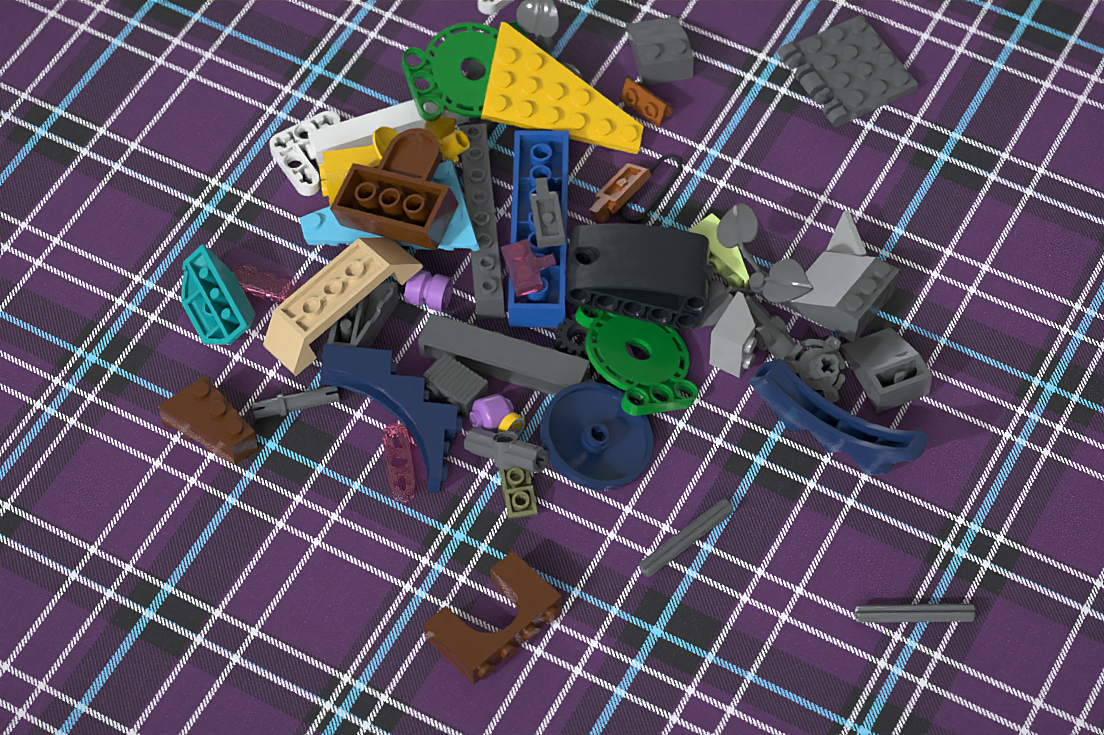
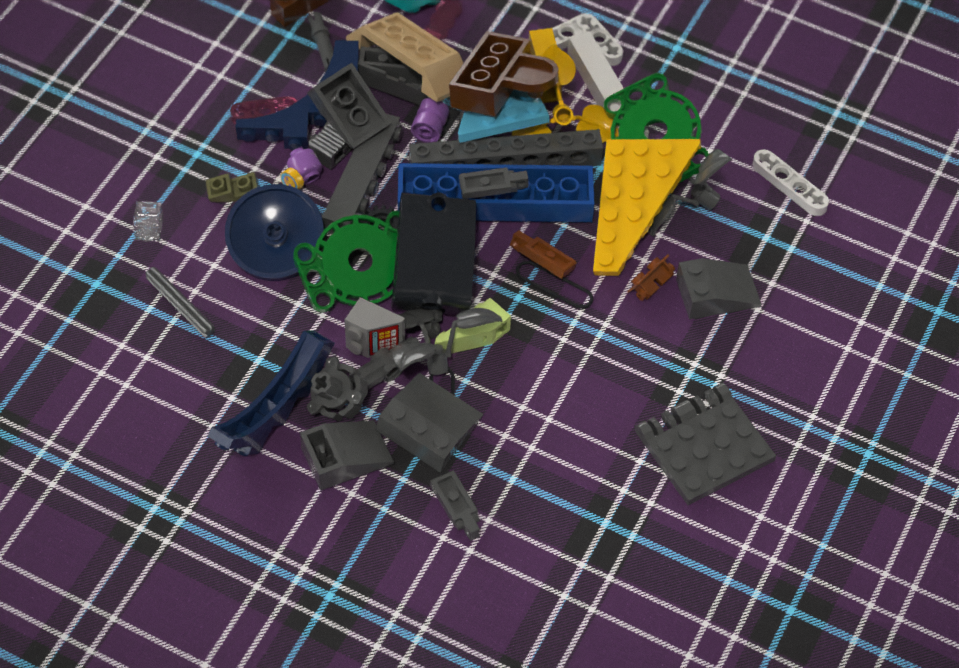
camera: 85 degrees right, 0 degrees up
(424, 352) = (349, 106): none -> dark grey slope
(478, 652) = (117, 195): reddish brown arch -> none
(506, 450) = (261, 170): dark grey piece -> none
(525, 267) = (436, 170): clear pink plate -> none
(574, 572) = (148, 221): none -> clear brick
(846, 237) = (490, 431): light grey slope -> none
(914, 613) = (91, 466): dark grey axle -> none
(937, 271) = (457, 503): none -> dark grey hinge

